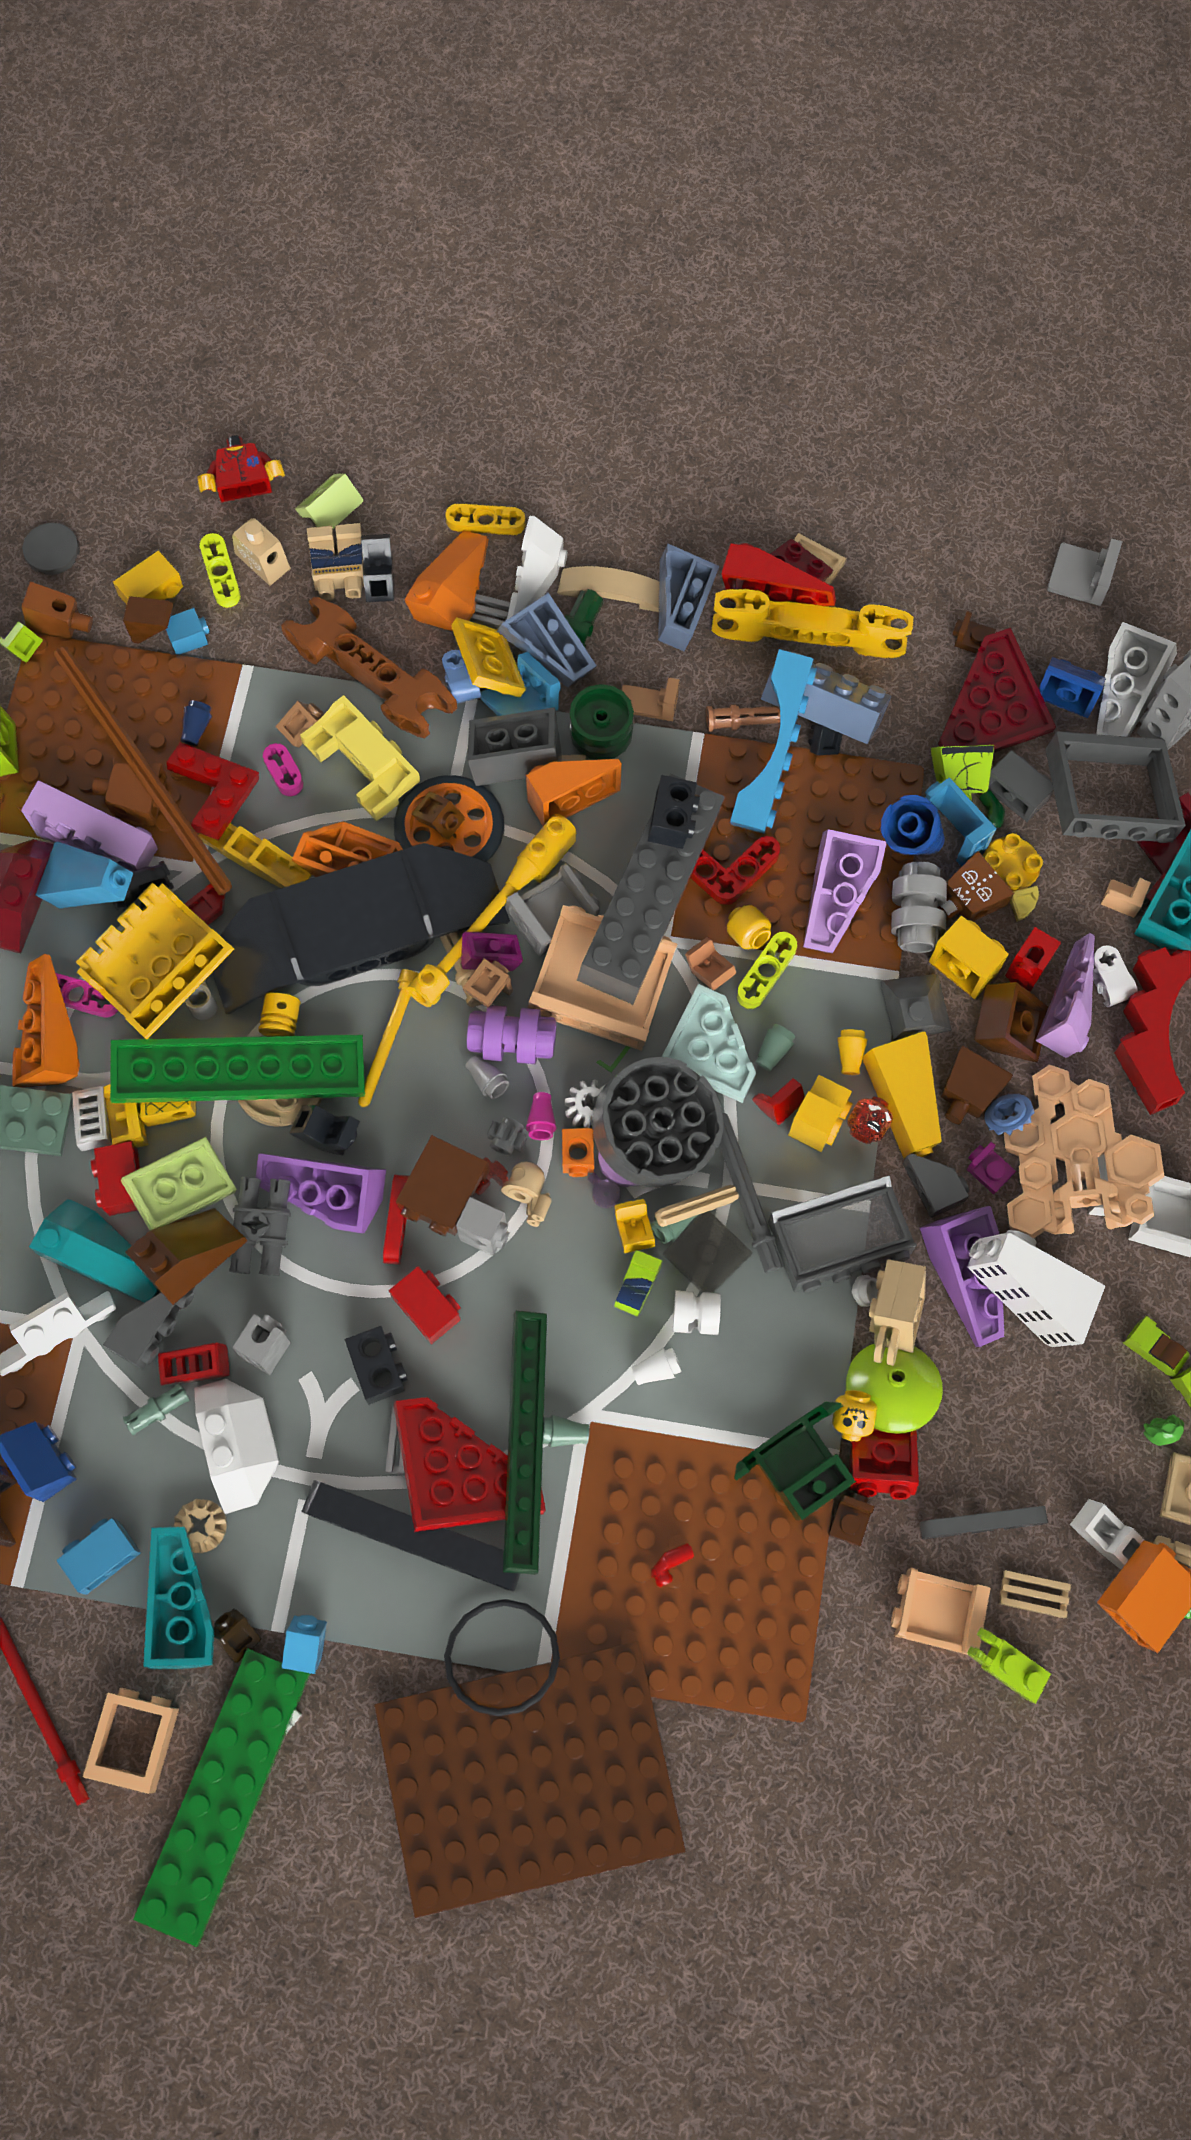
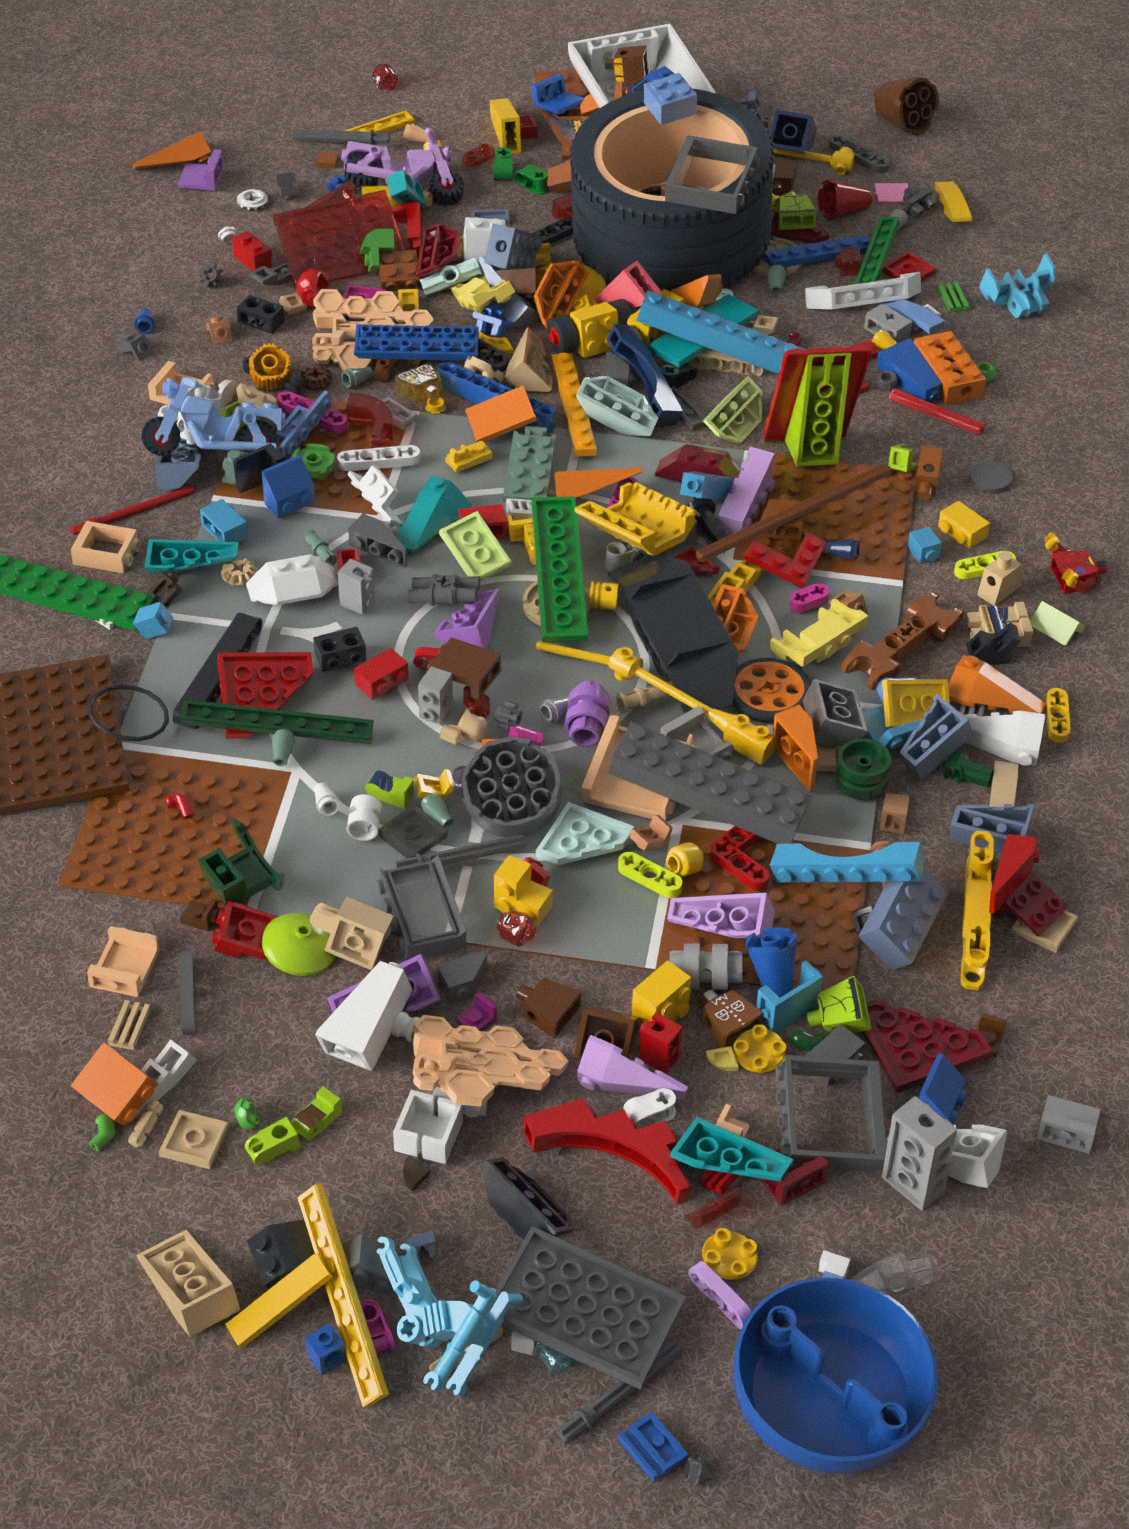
camera: 90 degrees right, 25 degrees down
(146, 617) = (928, 514): reddish brown slope -> none
(185, 1252) = (423, 543): reddish brown slope -> none
(324, 1129) = (515, 619): black brick -> none
(439, 814) = (769, 673): reddish brown bracket -> none
(488, 982) = (630, 691): medium nougat bracket -> none
(492, 947) = (656, 702): magenta slope -> none
(670, 811) = (766, 780): black brick -> none
(696, 1205) = (447, 816): tan axle -> none
(775, 1046) = (583, 875): sand green cone -> none
(851, 1050) = (578, 922): yellow cone -> none
(856, 1415) = (275, 902): yellow head -> none
(905, 1081) = (547, 955): yellow slope -> none
(915, 1005) = (618, 969): dark grey slope -> none
(1005, 1106) = (522, 1027): medium blue gear -> none
(1011, 1666) = (77, 994): lime hinge -> none

